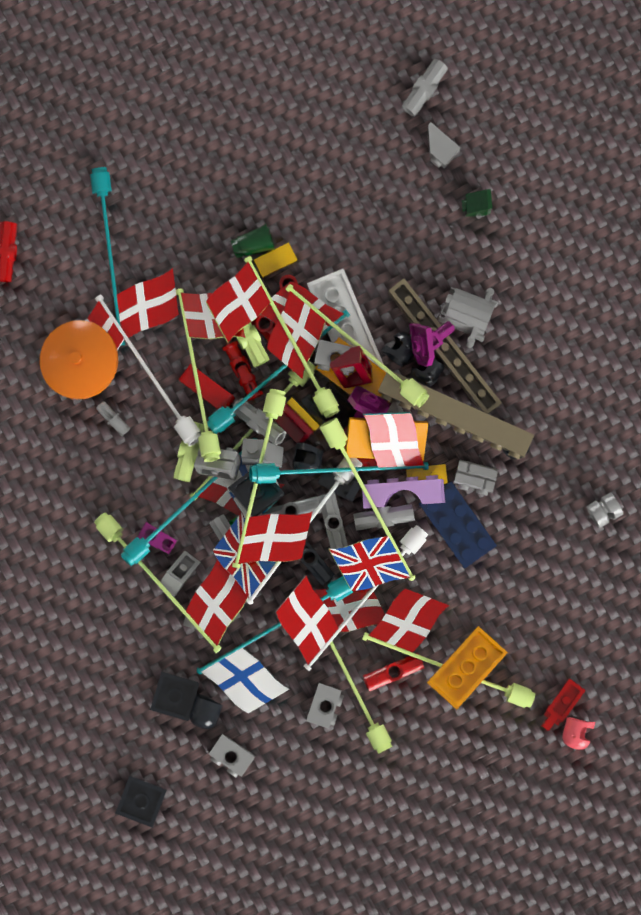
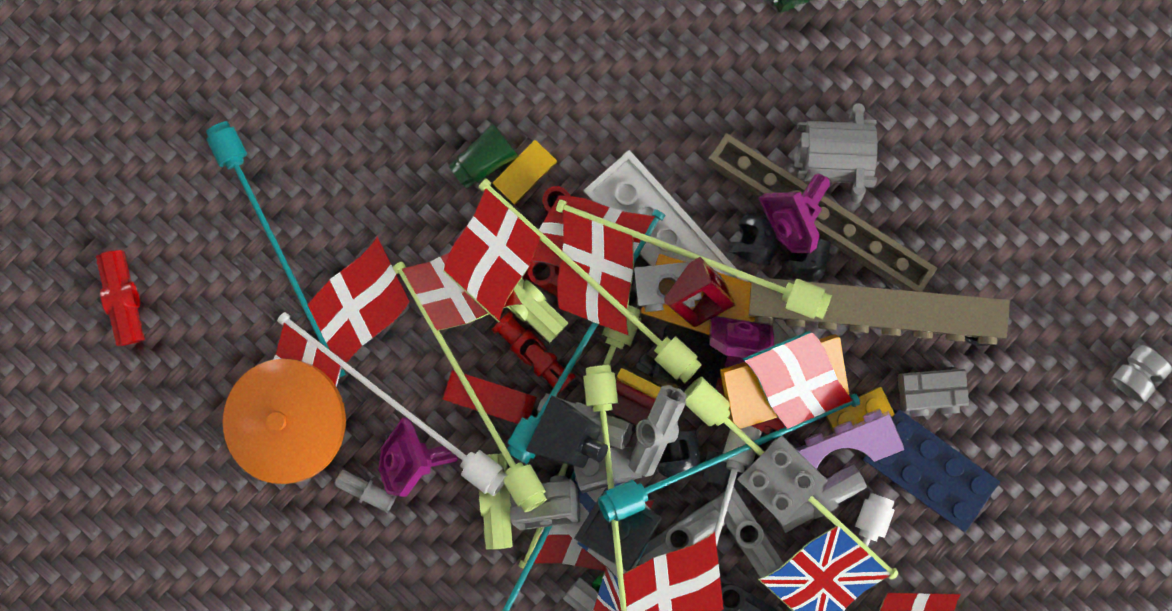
camera: 20 degrees left, 0 degrees up
(144, 407) = (406, 459): none -> magenta piece
(244, 425) = (567, 436): none -> black torso
(299, 440) = (657, 430): none -> light grey piece
(363, 495) = (782, 479): none -> light grey hinge

